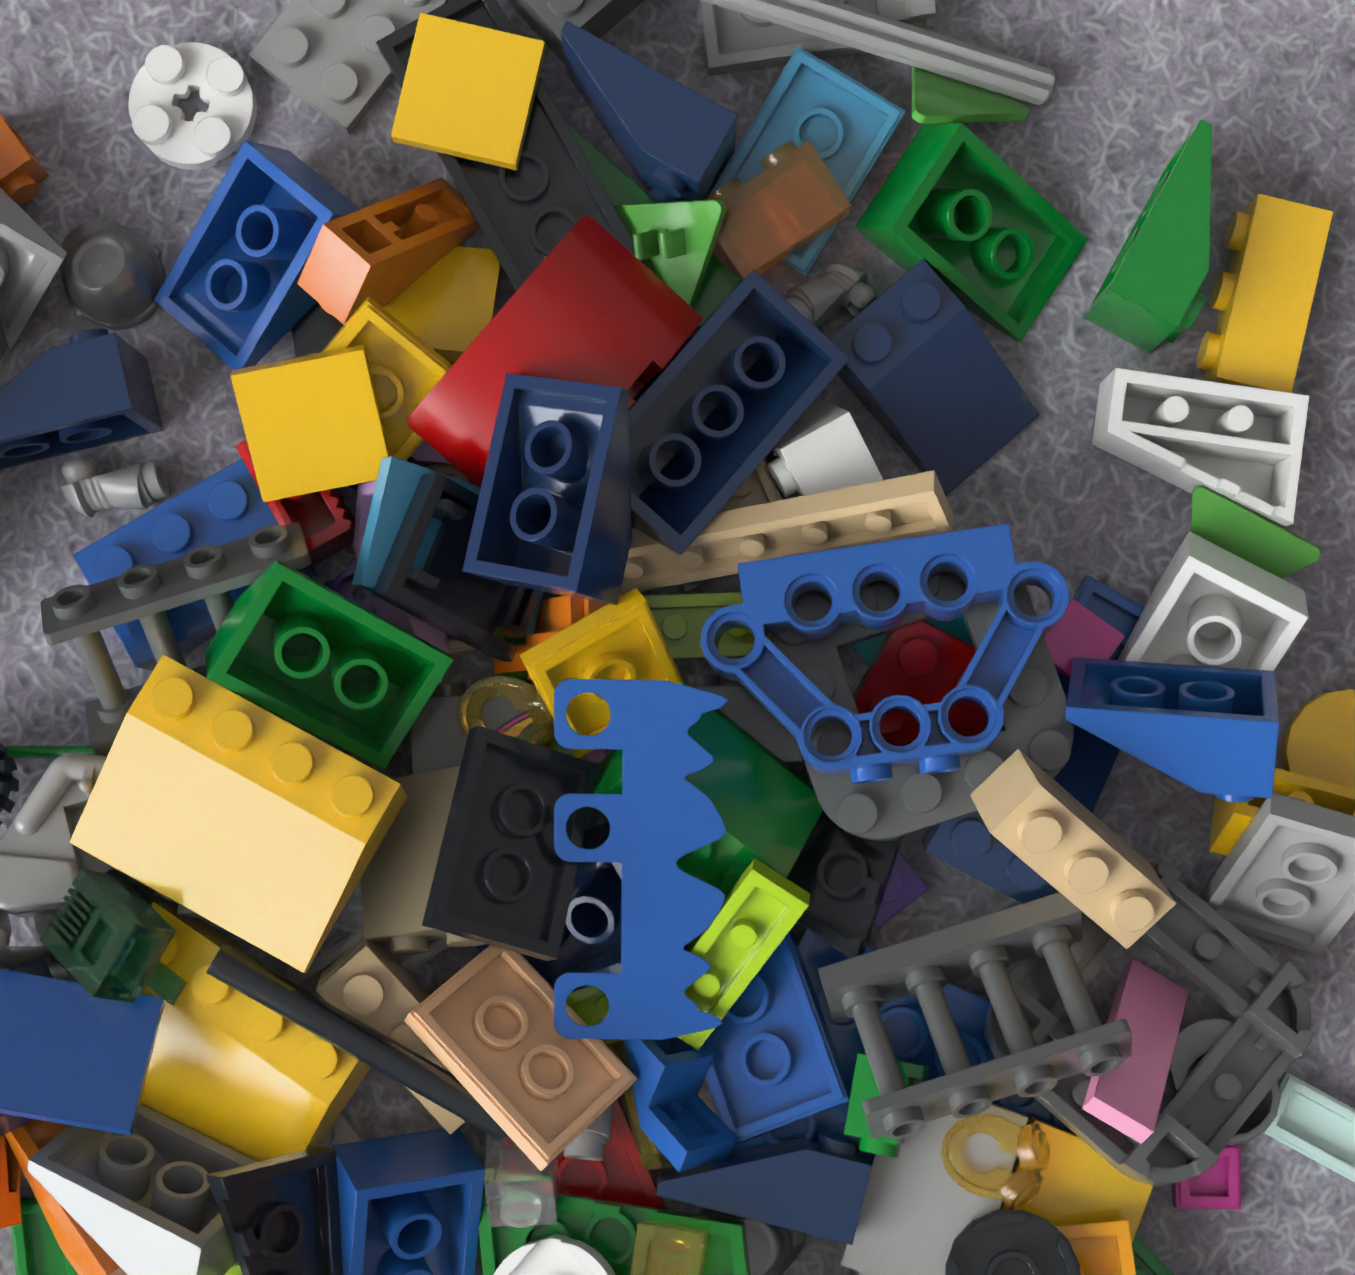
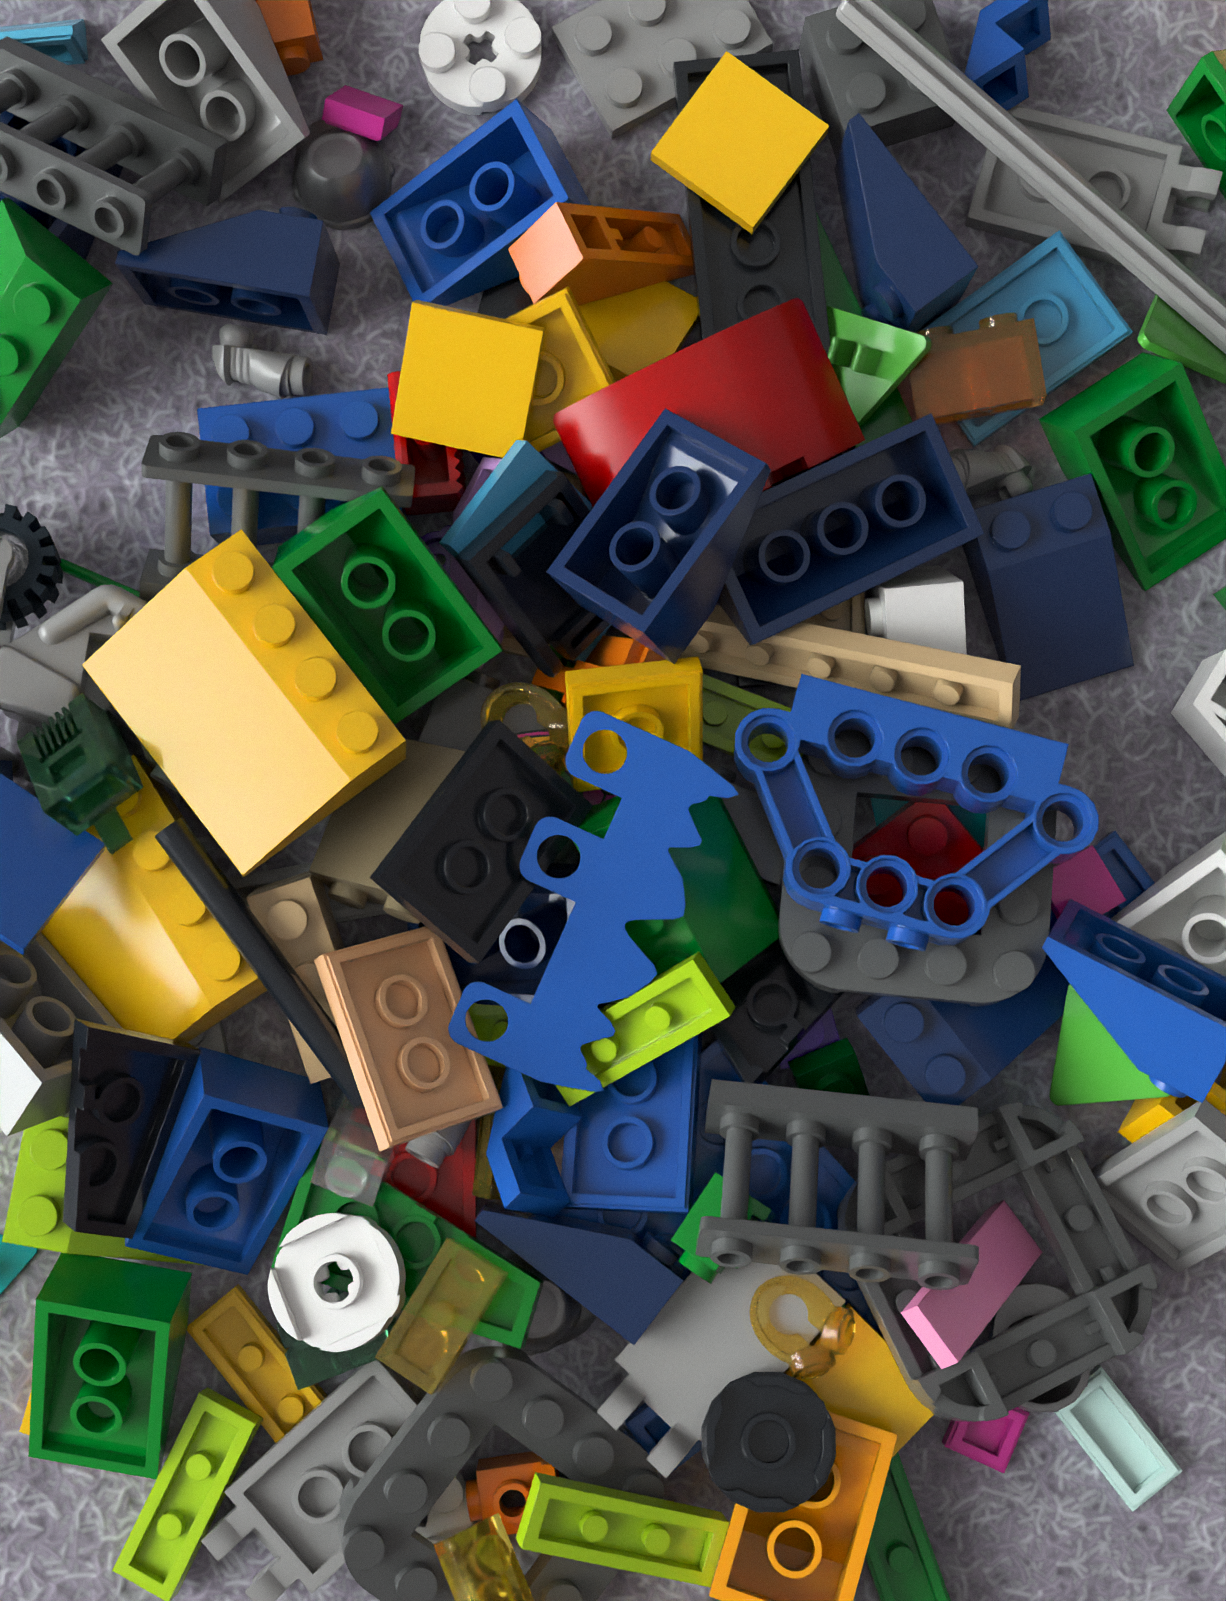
camera: 20 degrees right, 0 degrees up
(106, 211) = (361, 113): none -> dark pink tile
(923, 911) = (830, 1069): none -> dark green plate
(1072, 849) = (995, 1070): tan brick -> none
(1158, 803) = (1091, 1063): none -> bright green piece

